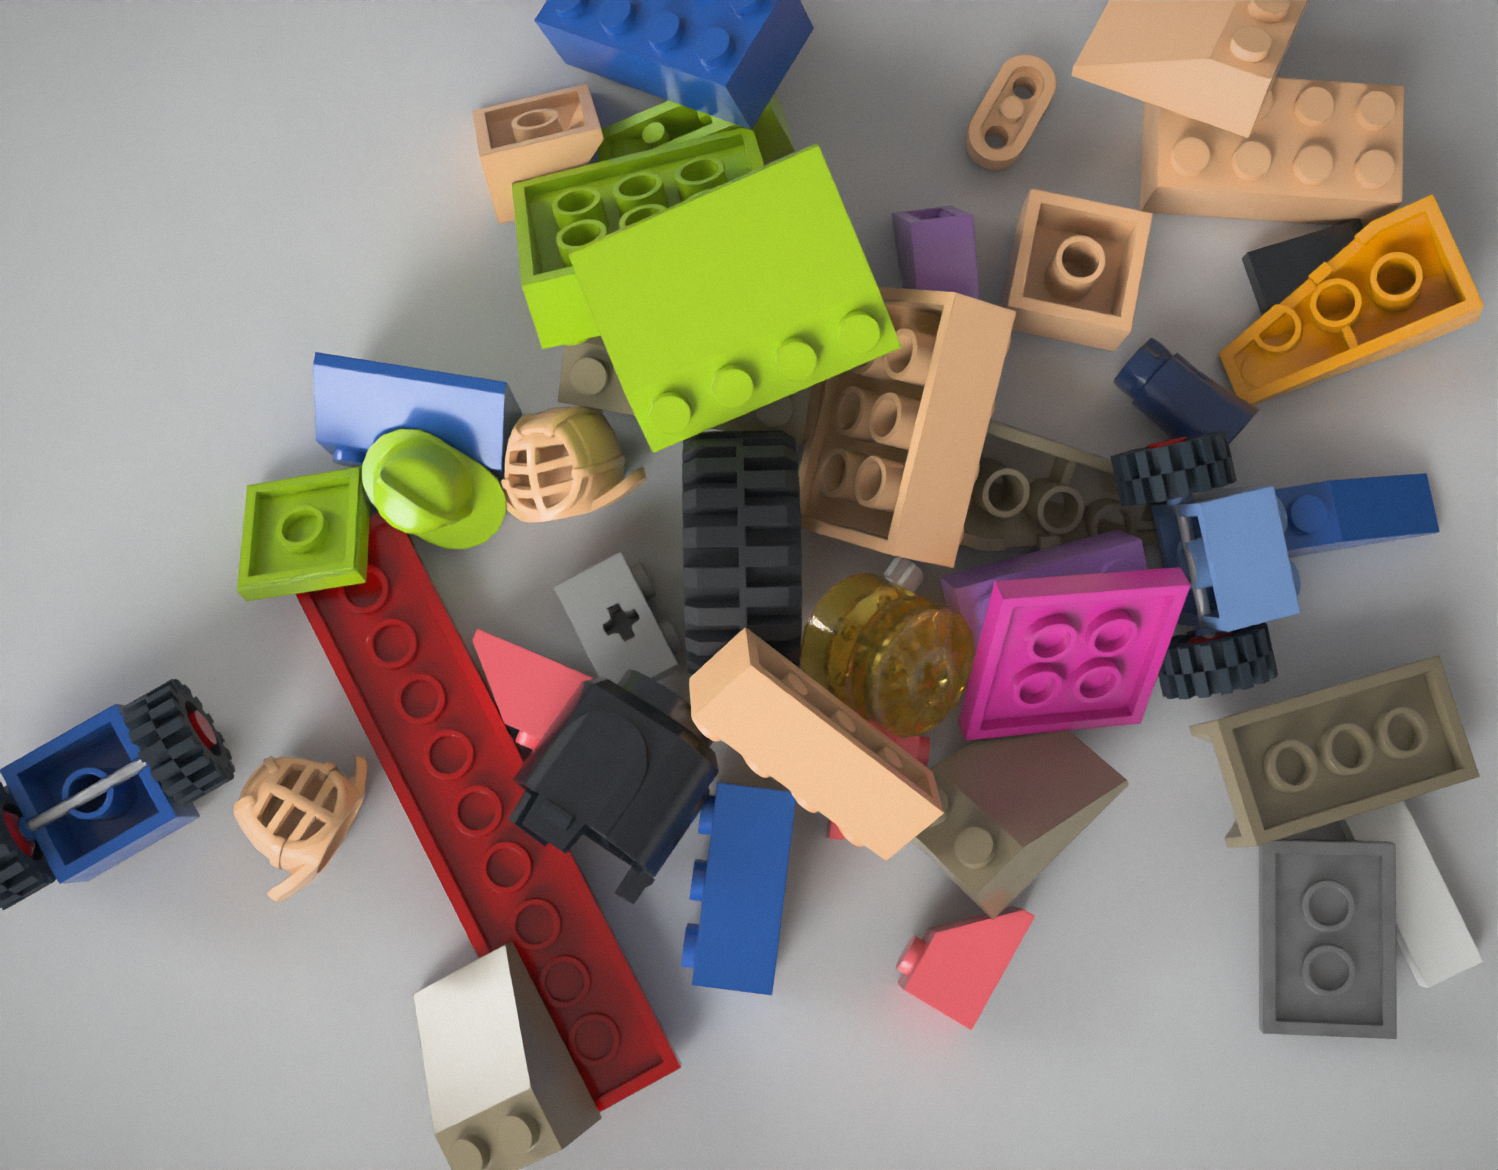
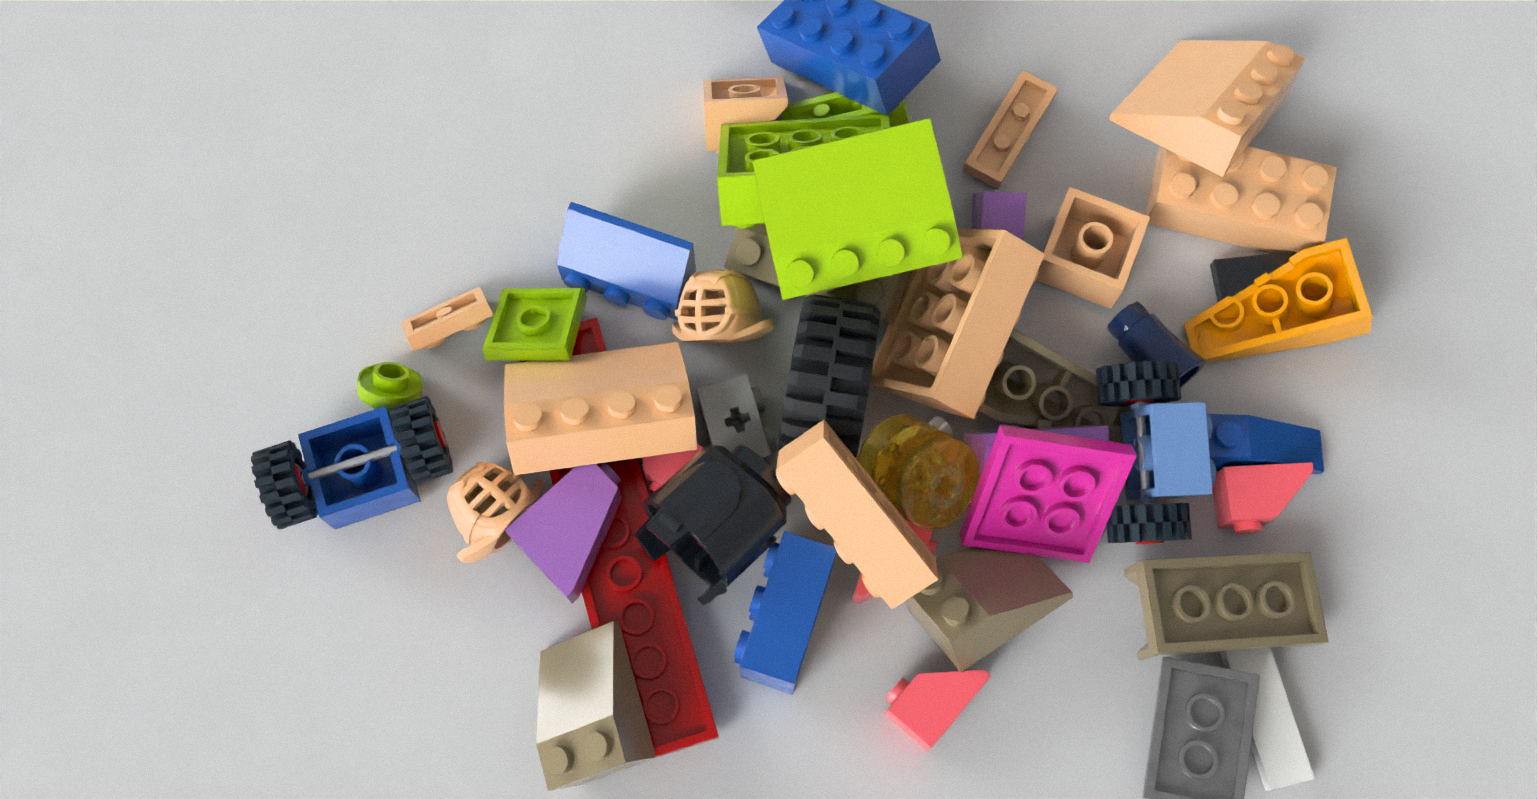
camera: 15 degrees right, 10 degrees down
(116, 665) = (388, 385): none -> lime plate
(176, 548) = (435, 324): none -> light nougat plate
(415, 824) = (569, 526): none -> medium lavender slope
(416, 648) = (598, 408): none -> light nougat slope
(432, 489) = (626, 308): lime piece -> none
(929, 107) = (1010, 129): none -> light nougat plate
(1009, 116) = (1063, 144): light nougat plate -> none
(1356, 586) = (1255, 494): none -> coral slope

